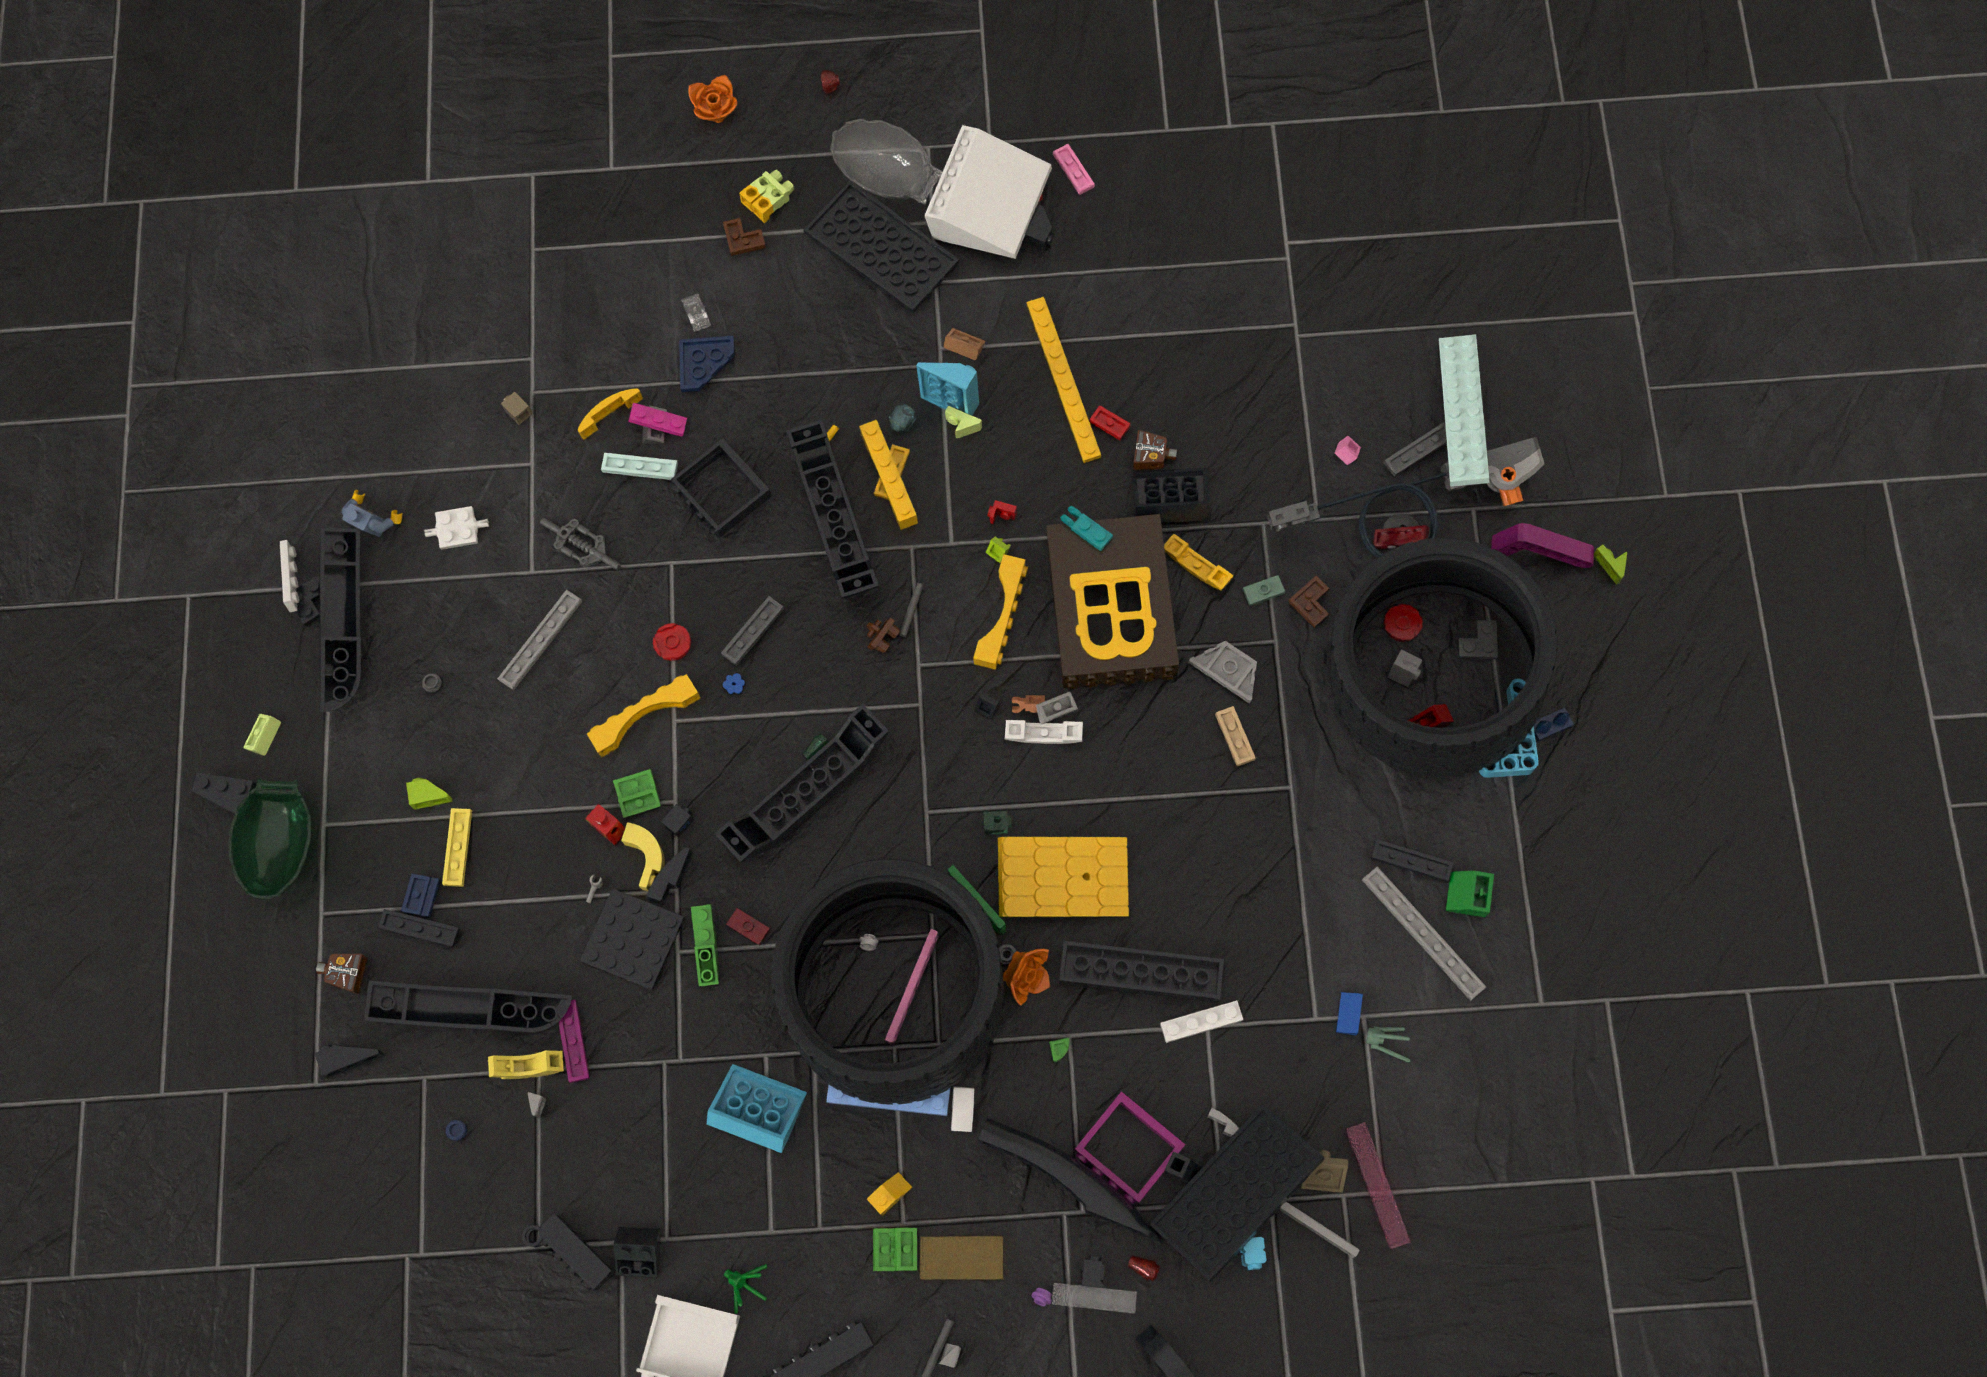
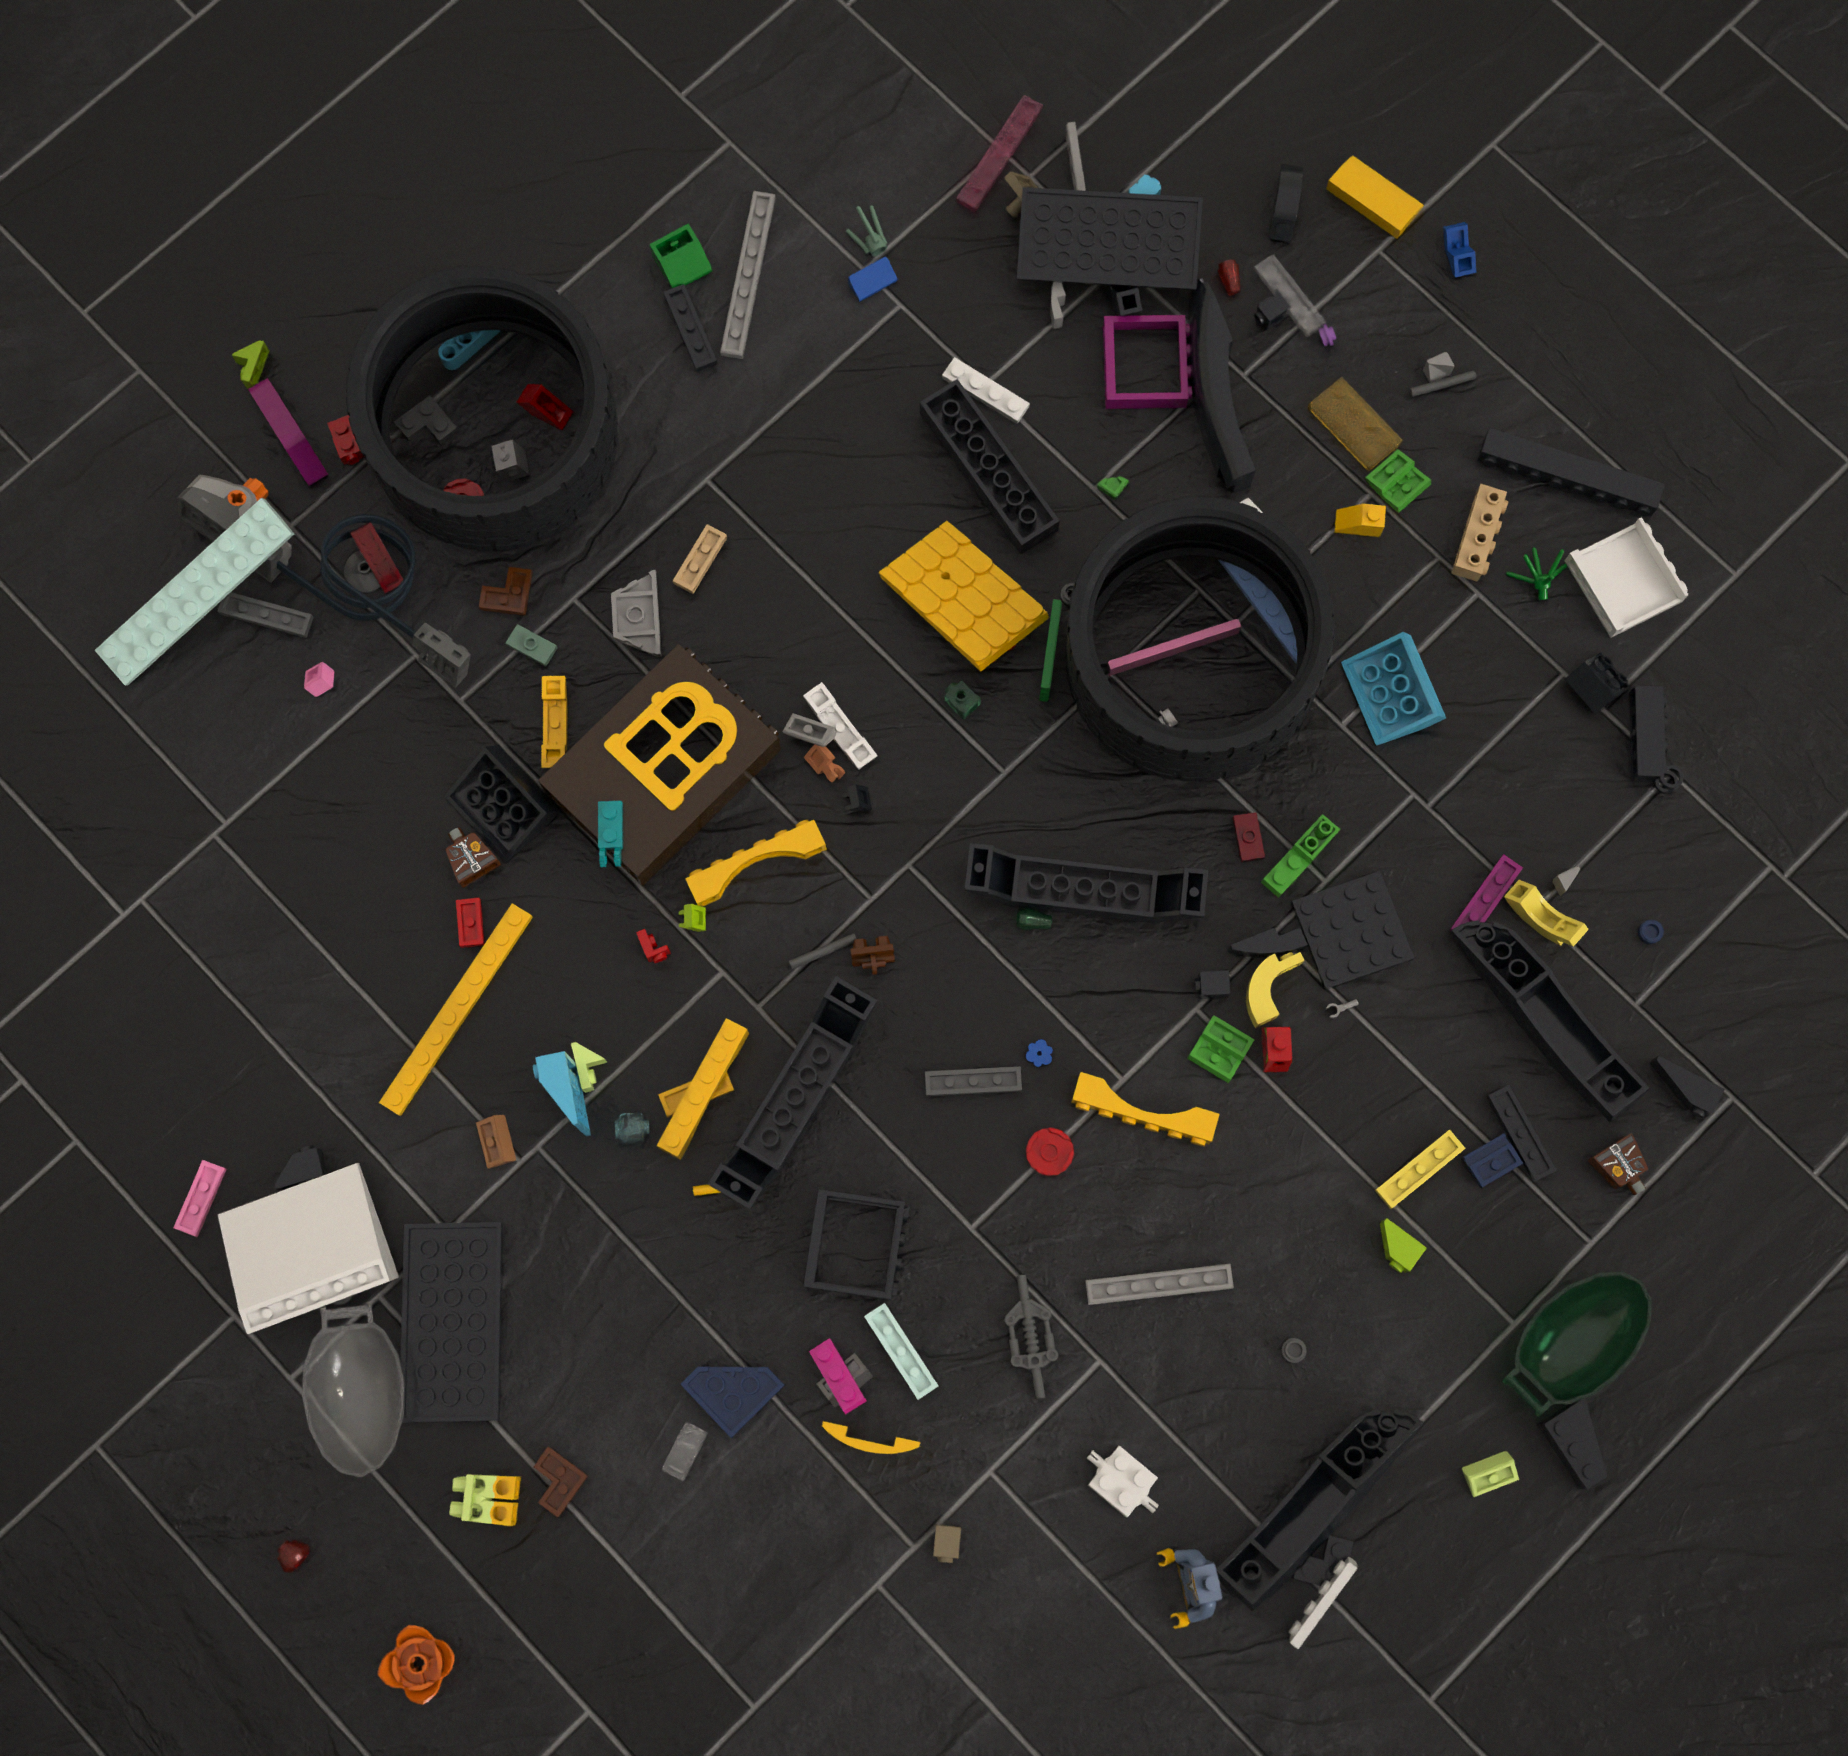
camera: 135 degrees left, 5 degrees up
(808, 1269) = (1479, 533): none -> tan brick
(1027, 974) = (1069, 556): orange brick -> none

